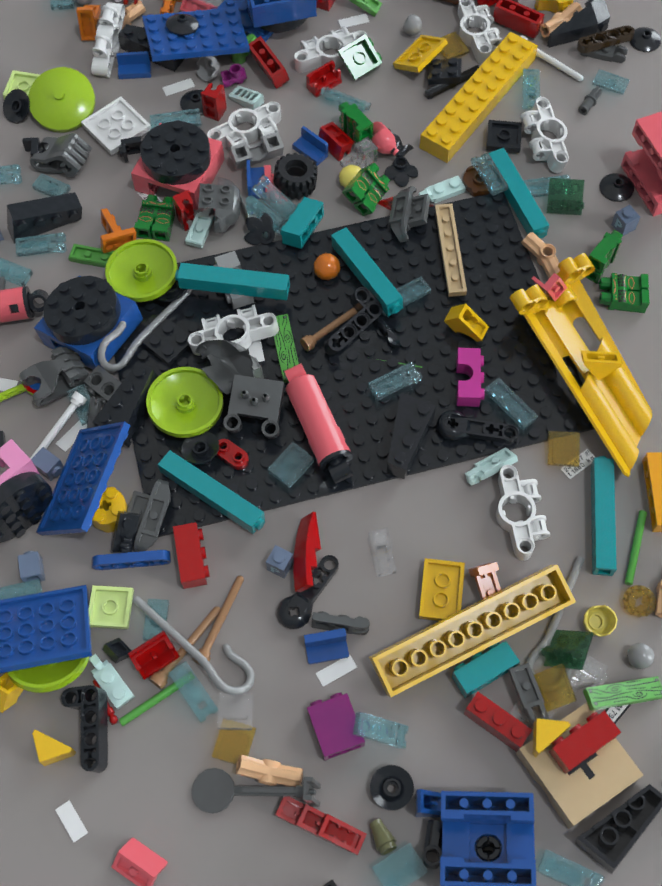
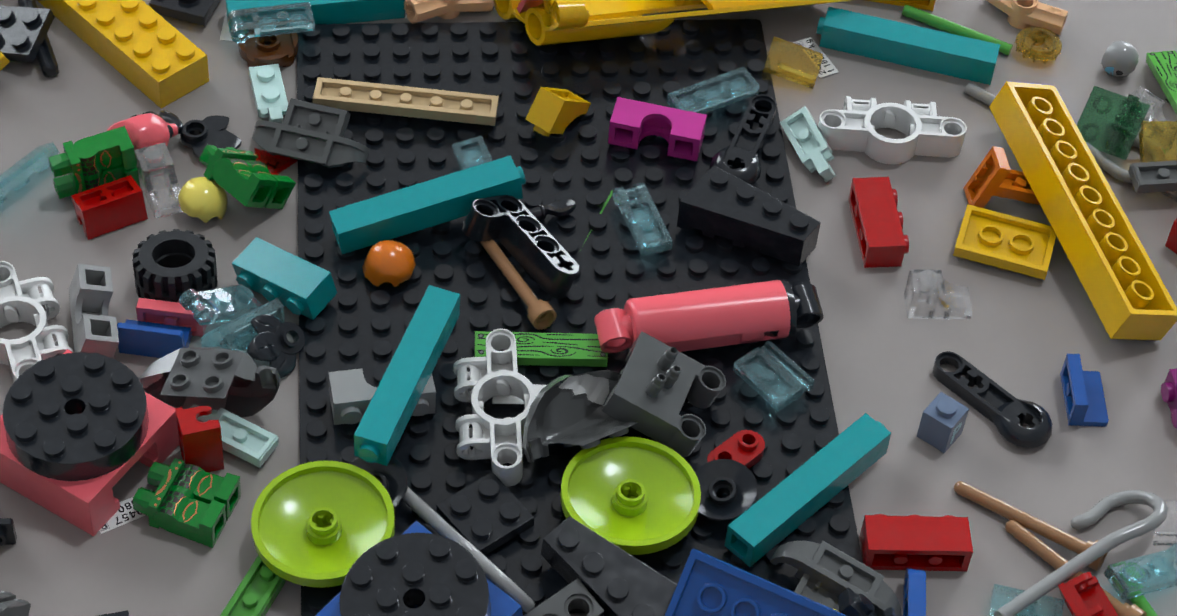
camera: 85 degrees left, 15 degrees down
(115, 235) = (198, 570): orange bracket -> none
(304, 553) = (925, 382): red slope -> none
(311, 146) = (105, 240): blue panel -> none
(329, 622) = (1050, 366): dark grey hinge -> none
(336, 670) = (1119, 395): white sticker -> none
(434, 511) = (878, 222): none -> red brick
(484, 668) = (1142, 215): teal brick -> none
(600, 620) = (1071, 82): light yellow hair -> none

